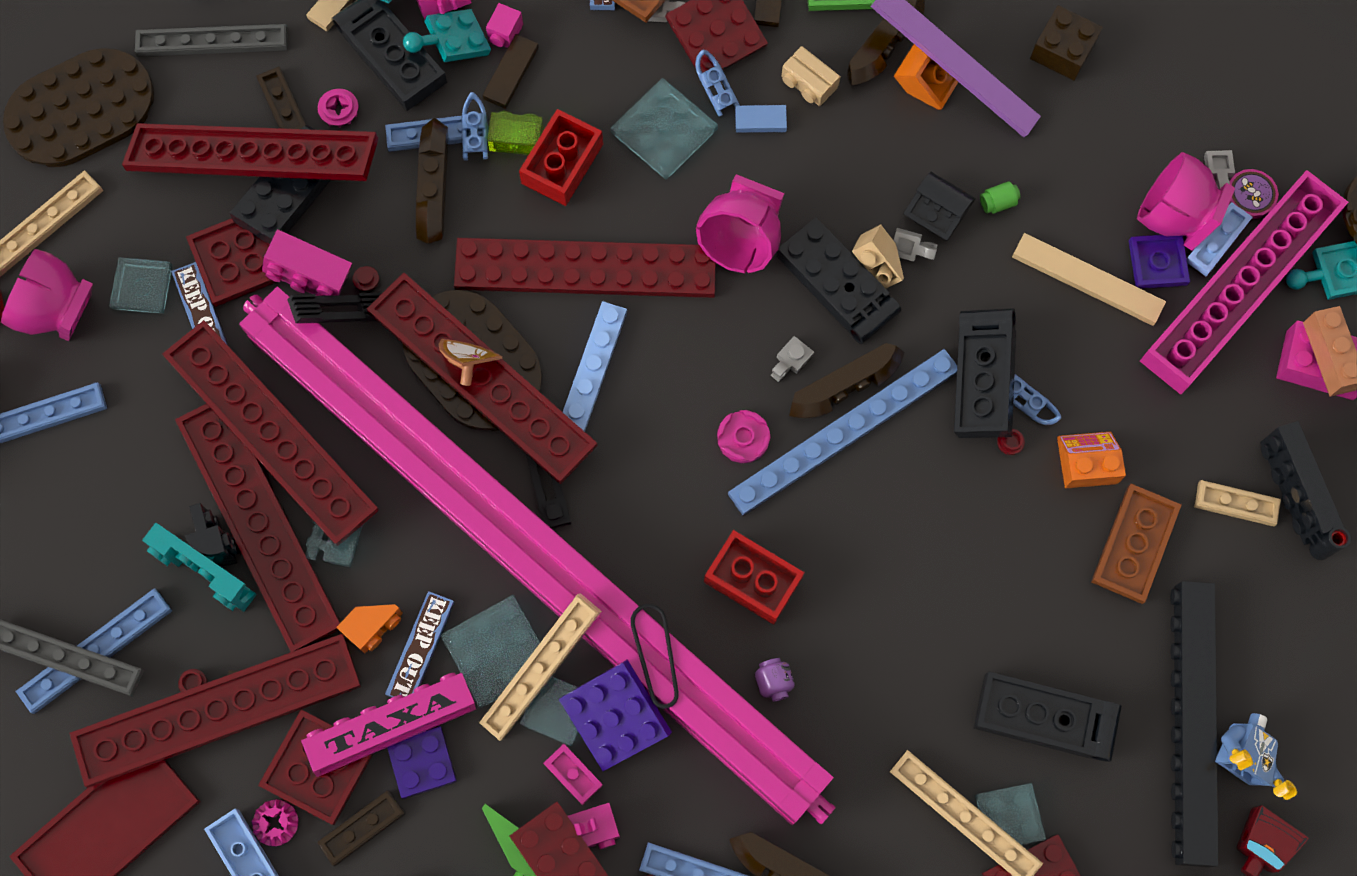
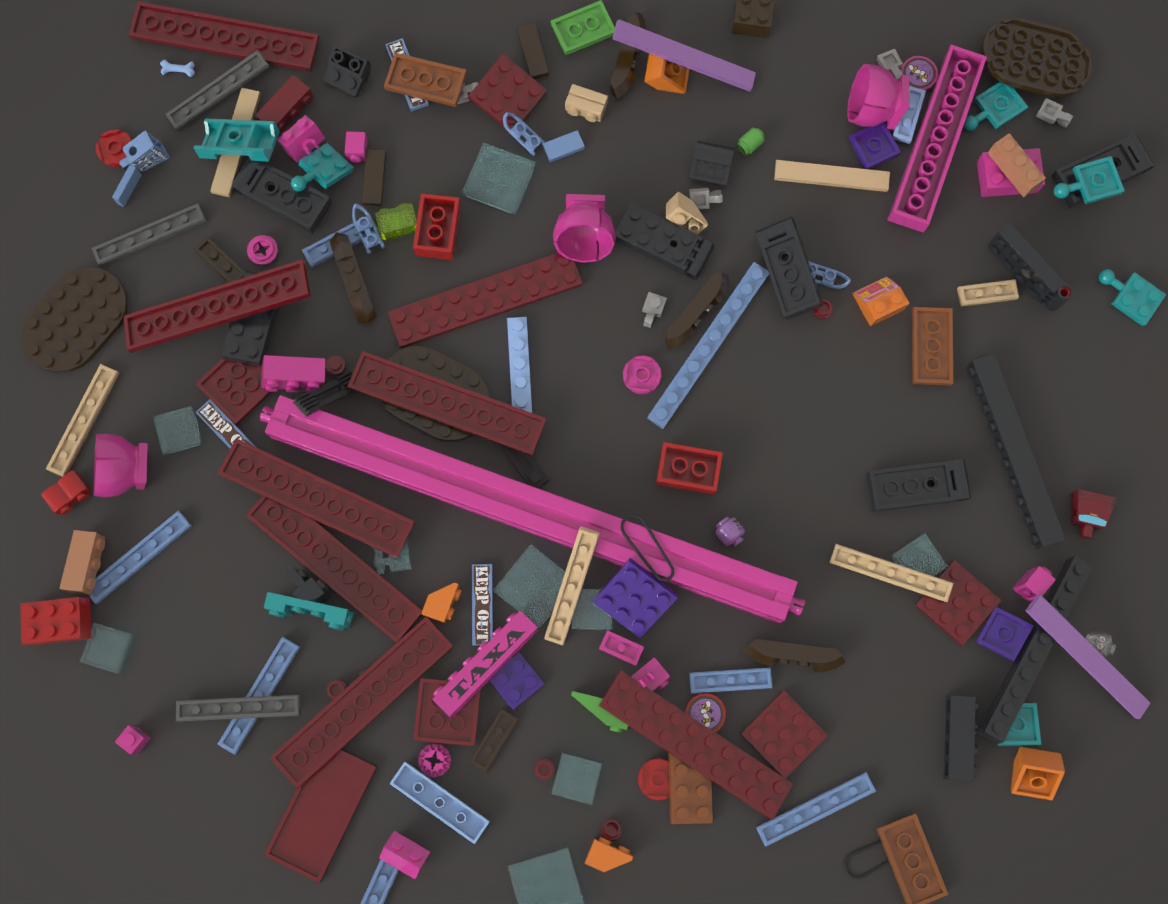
camera: 20 degrees left, 5 degrees up
(465, 356) = (432, 393): shield -> none
(1252, 756) = (1059, 458): medium blue torso -> none

